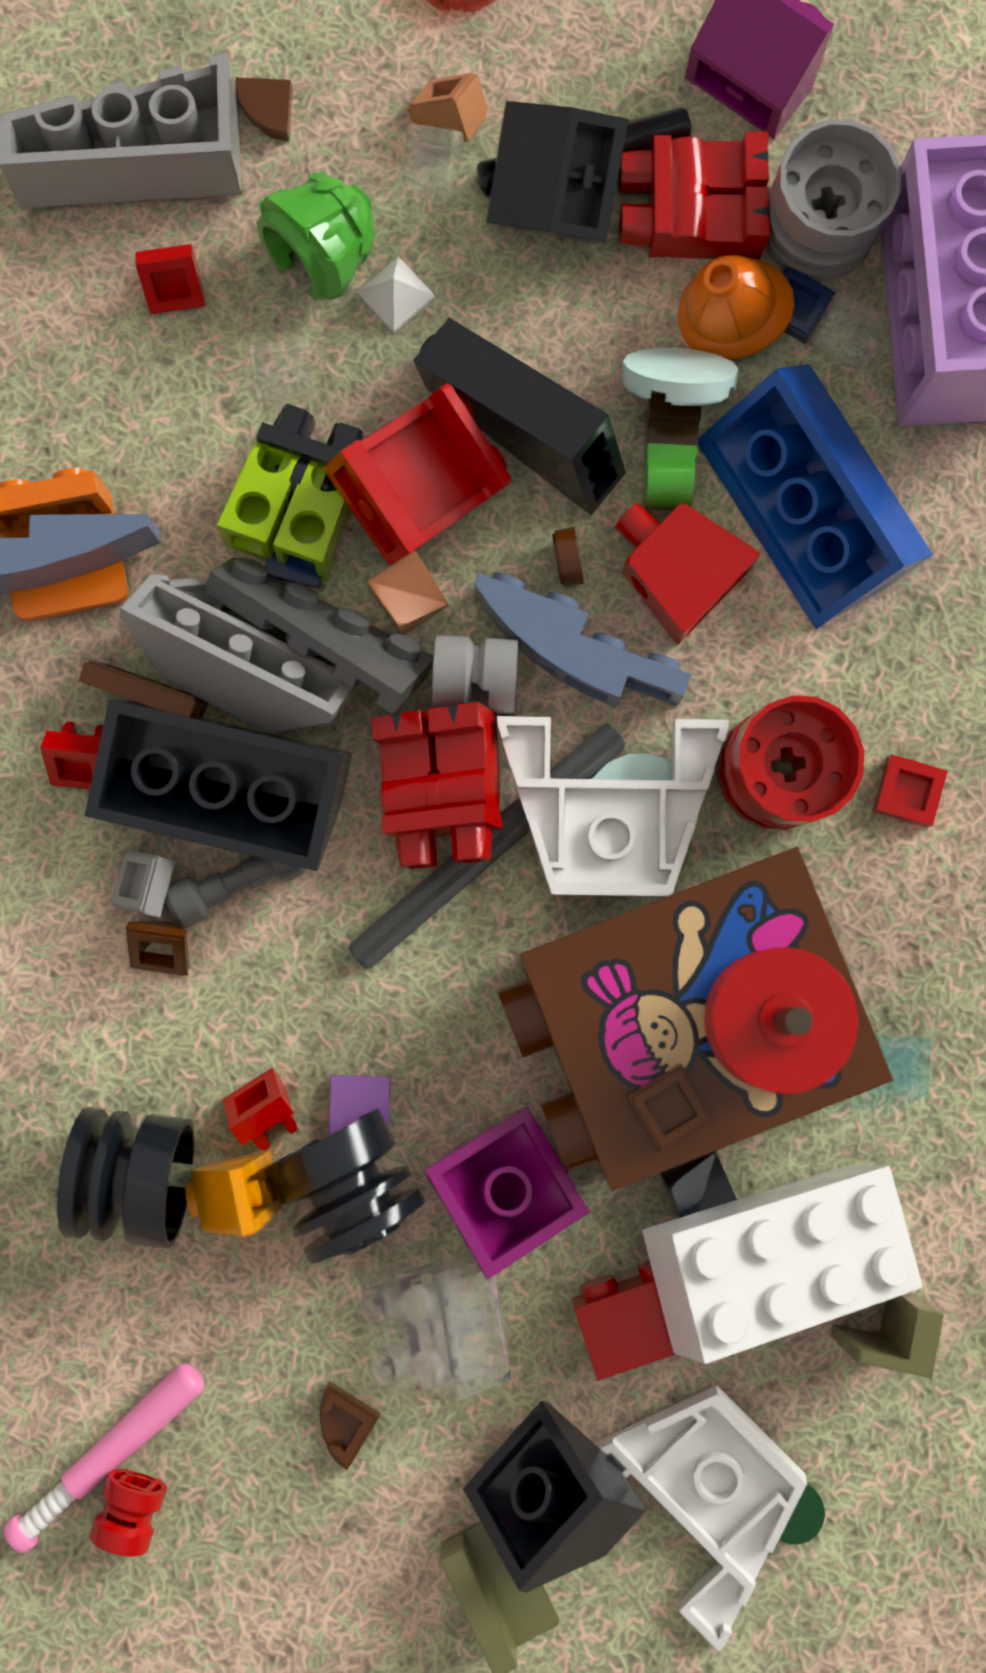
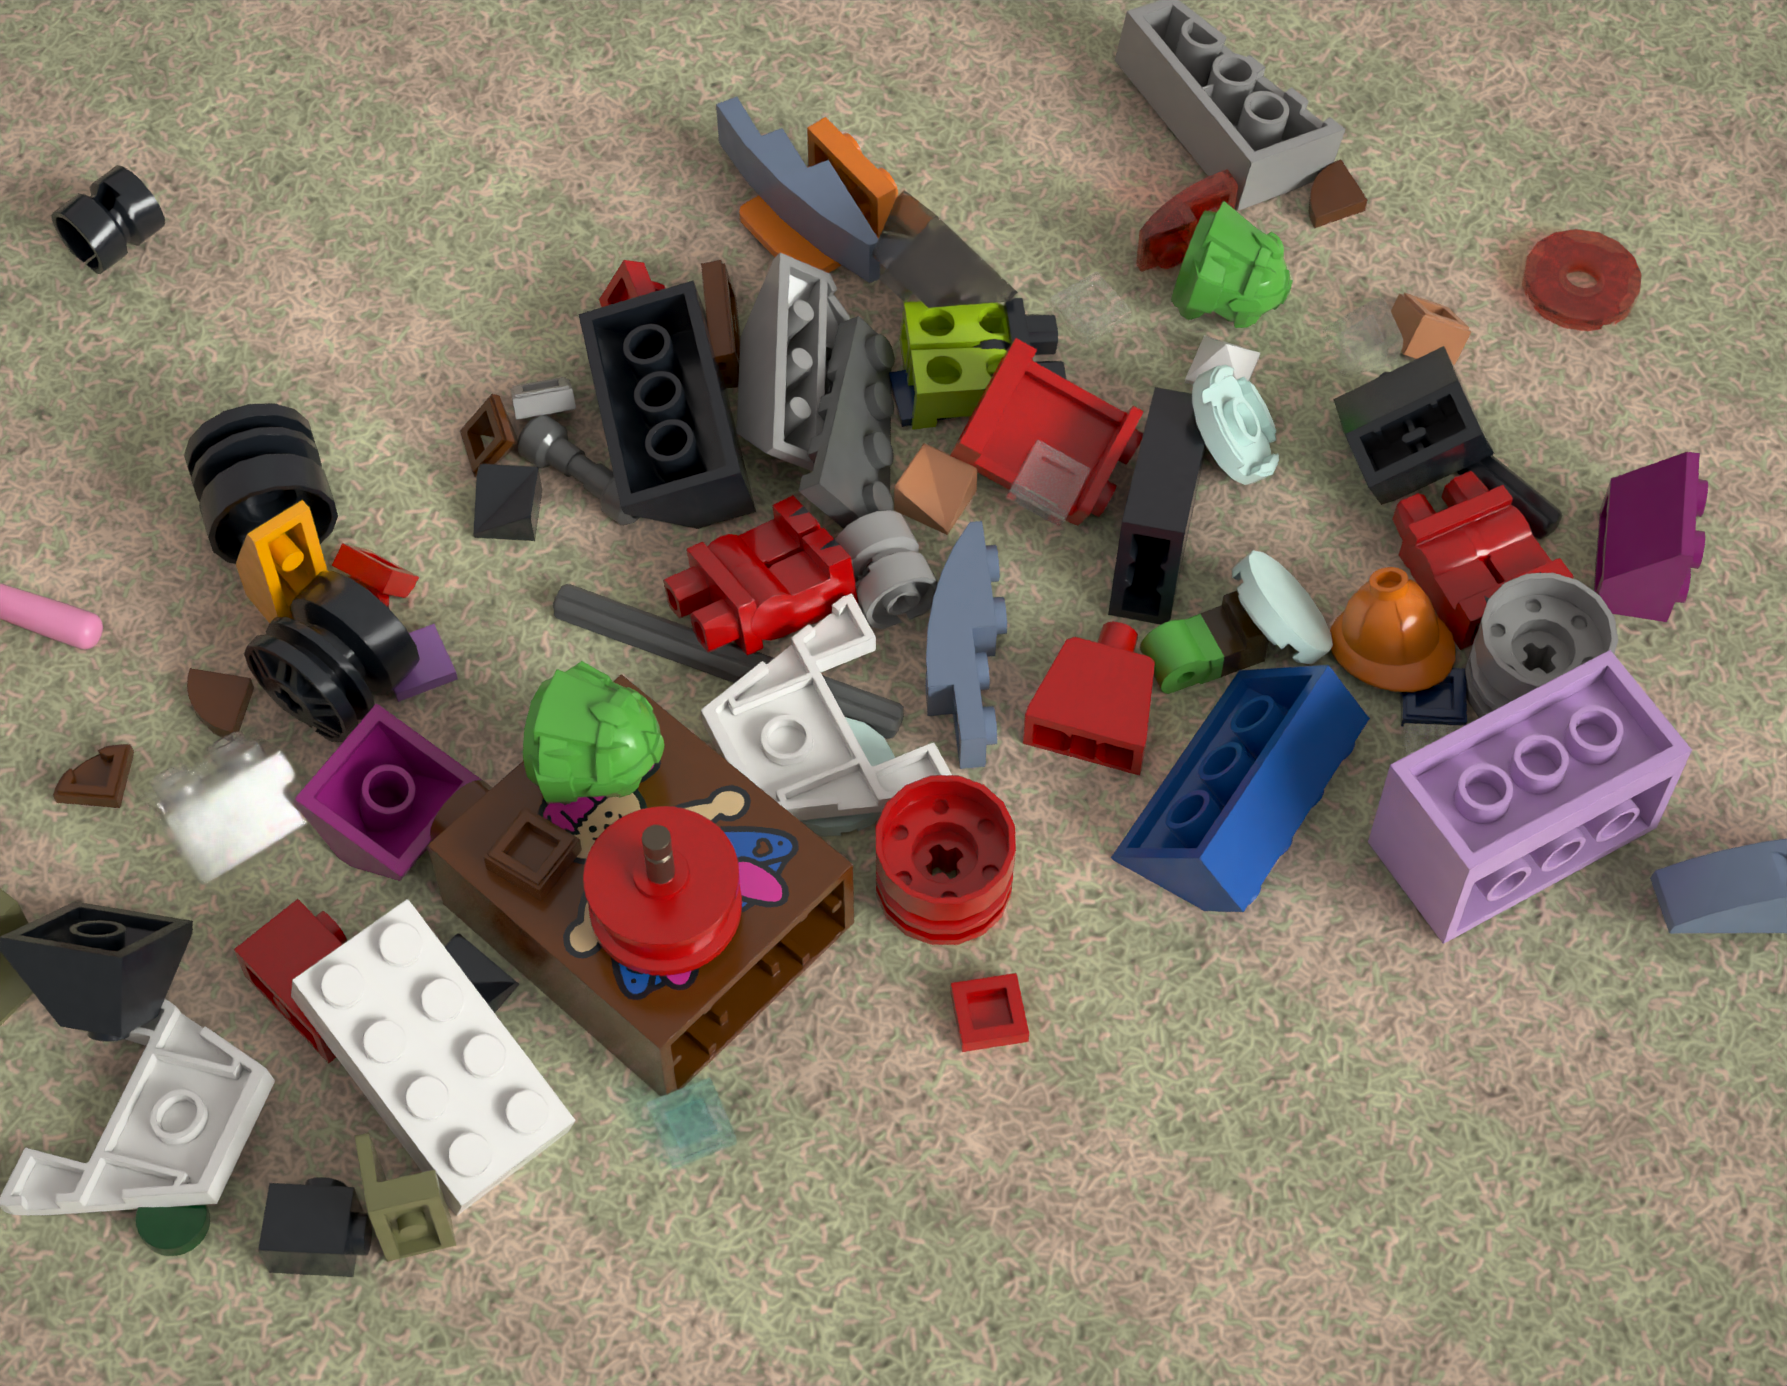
camera: 60 degrees right, 25 degrees down
(170, 278) = (1119, 187): red tile -> none
(190, 477) = (933, 261): none -> clear smoke slope
(238, 961) = (507, 502): none -> black slope
(240, 244) = (1170, 229): none -> clear red slope
(318, 1292) = (219, 699): none -> reddish brown tile
(462, 498) = (1048, 483): none -> clear tile
(476, 316) = (1235, 424): none -> light aqua tile
(568, 557) = (1049, 602): reddish brown tile -> none
(605, 1015) = (588, 737): none -> bright green helmet
(864, 1406) = (314, 1228): none -> black brick

